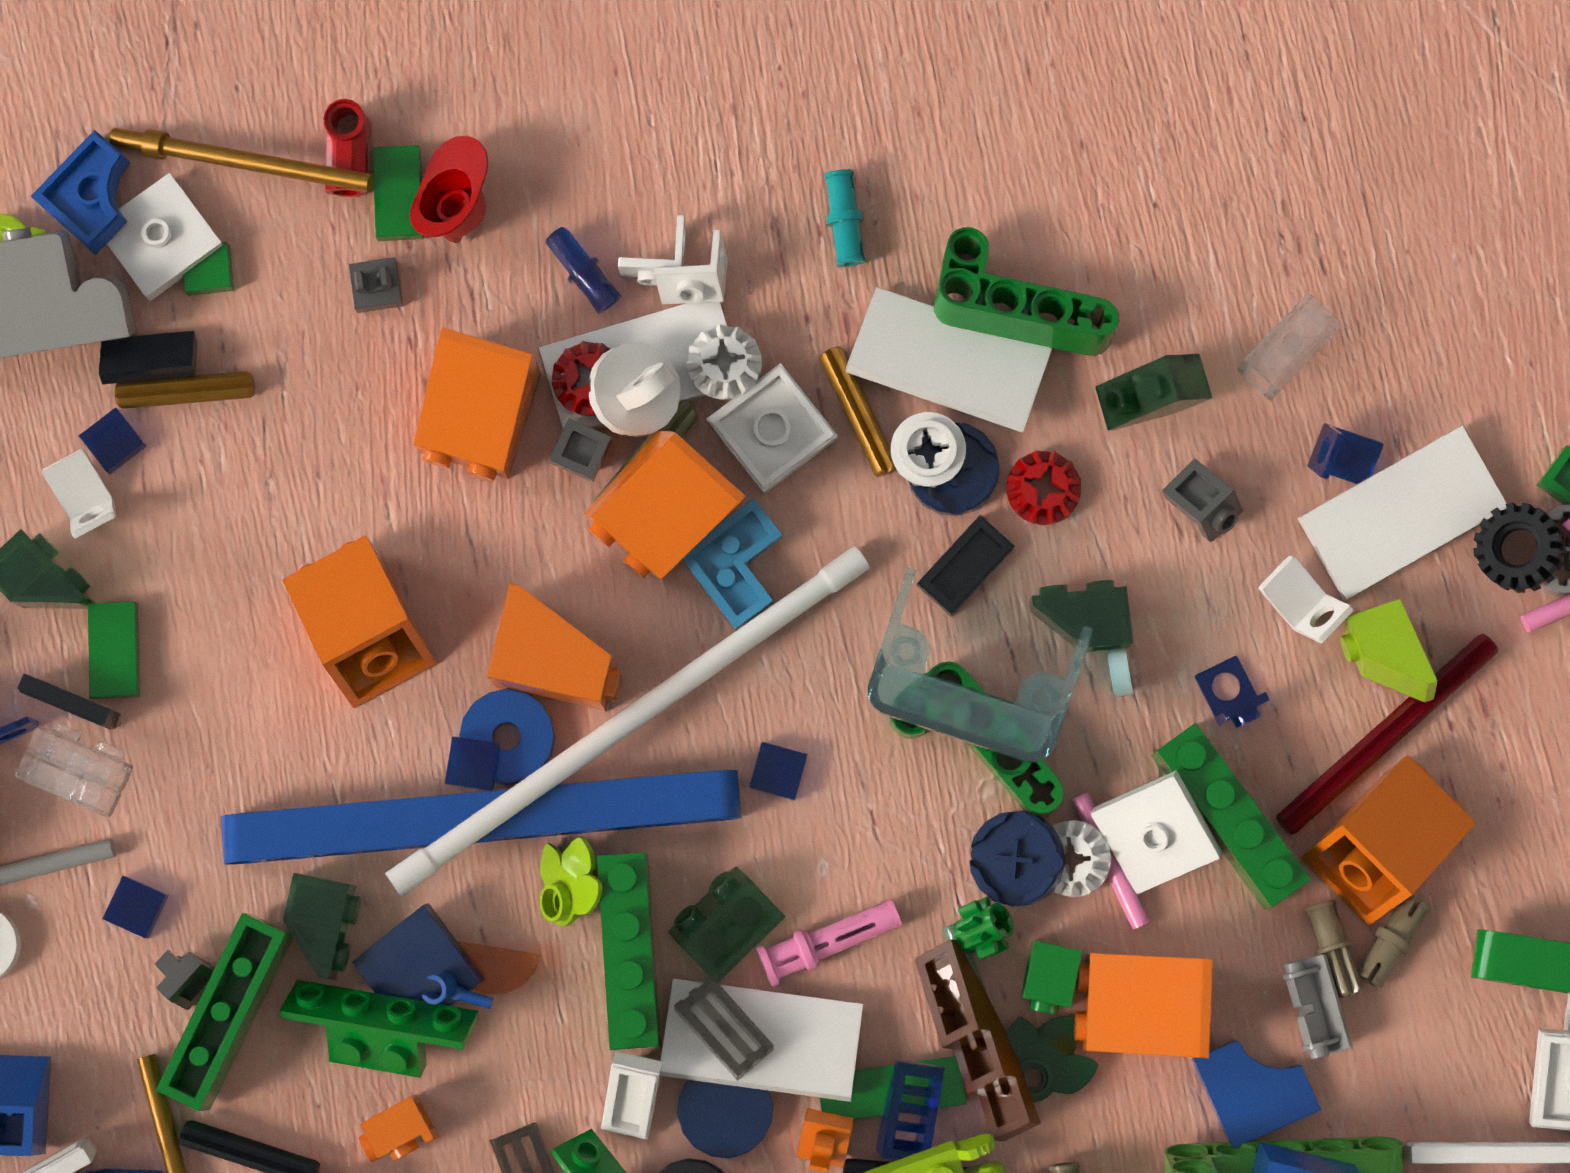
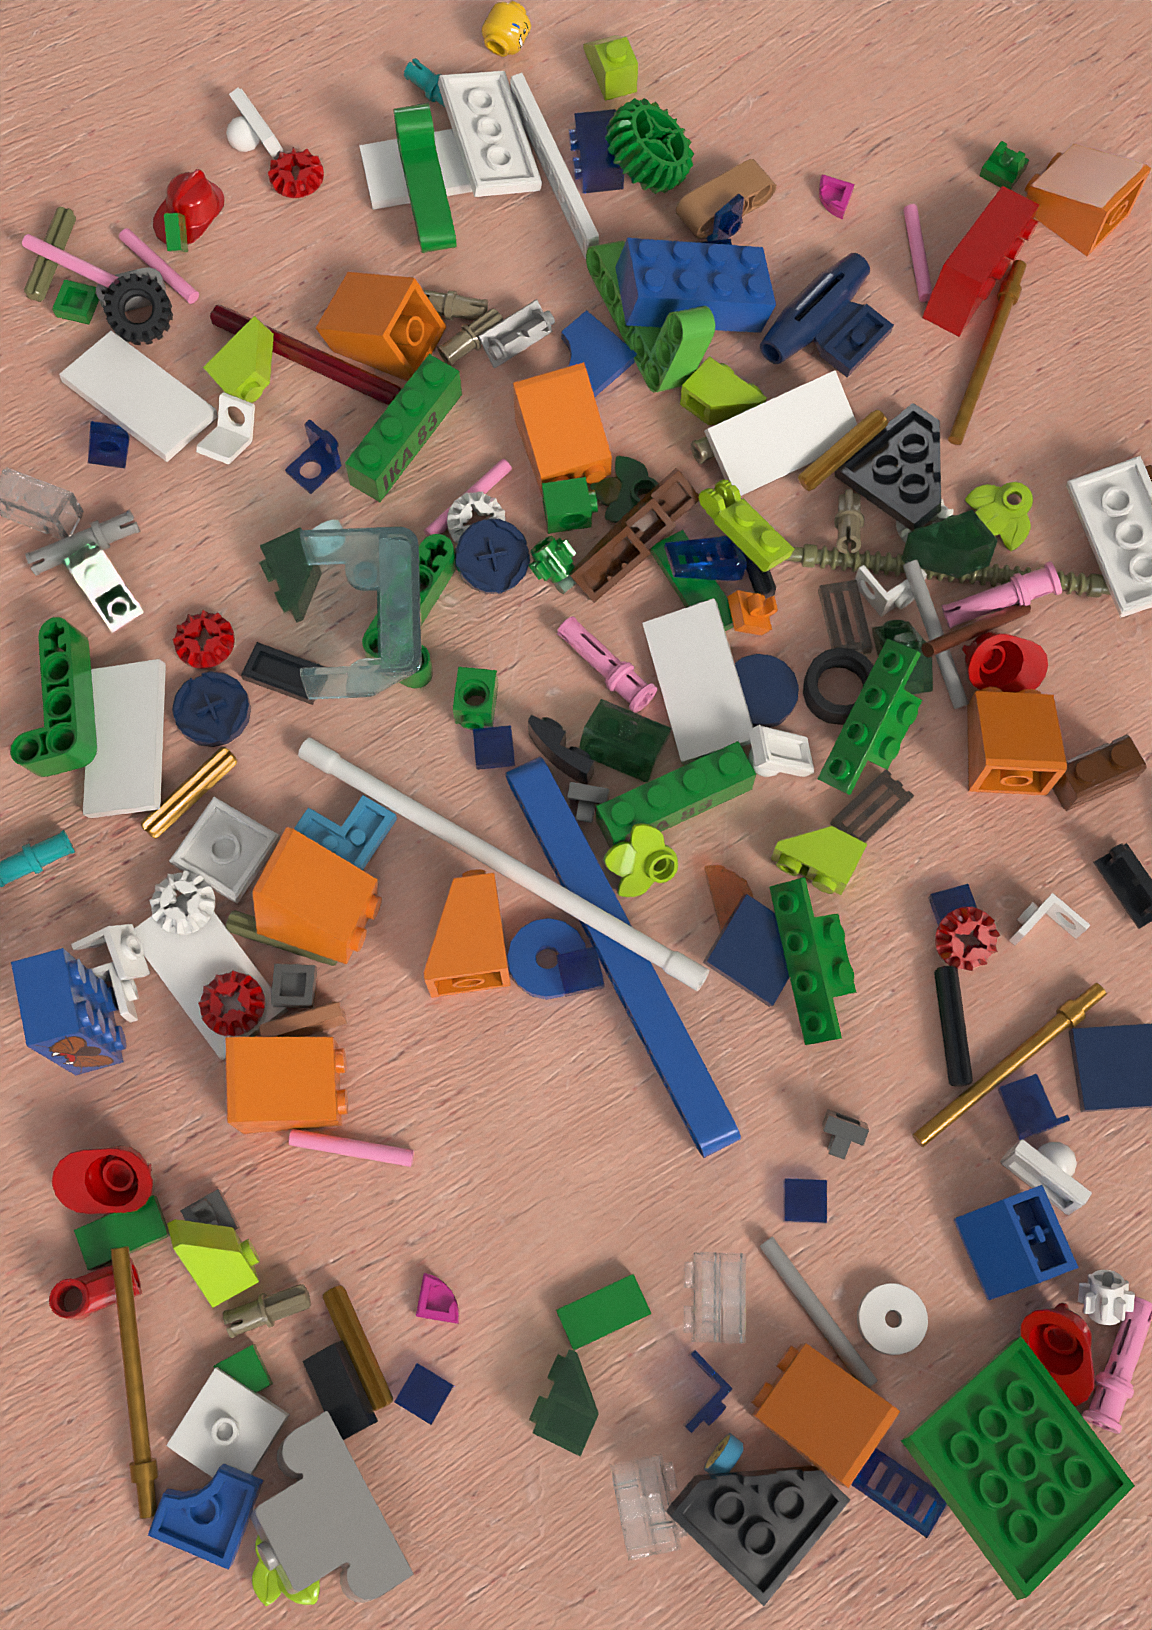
camera: 115 degrees left, 10 degrees down
(68, 702) = (663, 1329): black tile -> none
(80, 492) = (481, 1397): white bracket -> none
(196, 486) = (437, 1301): none -> dark pink tile
(225, 1012) = (857, 1082): green brick -> none
(257, 311) = (267, 1310): none -> dark tan axle
(319, 919) = (749, 1043): clear green slope -> none
(324, 274) = (215, 1258): none -> lime slope
(358, 621) = (498, 1110): orange slope -> none
(386, 457) = (351, 1147): none -> bright pink bar
(396, 1130) = (884, 917): orange brick -> none
(452, 991) = (763, 909): blue hand -> none
(493, 1093) = (822, 856): none -> lime slope
(537, 446) = (306, 1022): none -> nougat tile
(583, 270) = (141, 1048): clear blue axle -> none
(623, 201) = (68, 1012): none -> blue brick
(634, 389) = (227, 956): white tile -> none
(670, 853) = (588, 797): none -> dark grey tile
(697, 996) = (688, 701): clear smoke tile -> none
(754, 837) = (551, 741): none -> black slope
(852, 789) = (475, 683): none -> green brick
(942, 433) = (185, 721): white gear -> none
(1156, 832) = (435, 467): white plate -> none
(1204, 500) = (173, 525): dark grey bracket -> none
(1221, 377) = (100, 533): none -> light grey pin

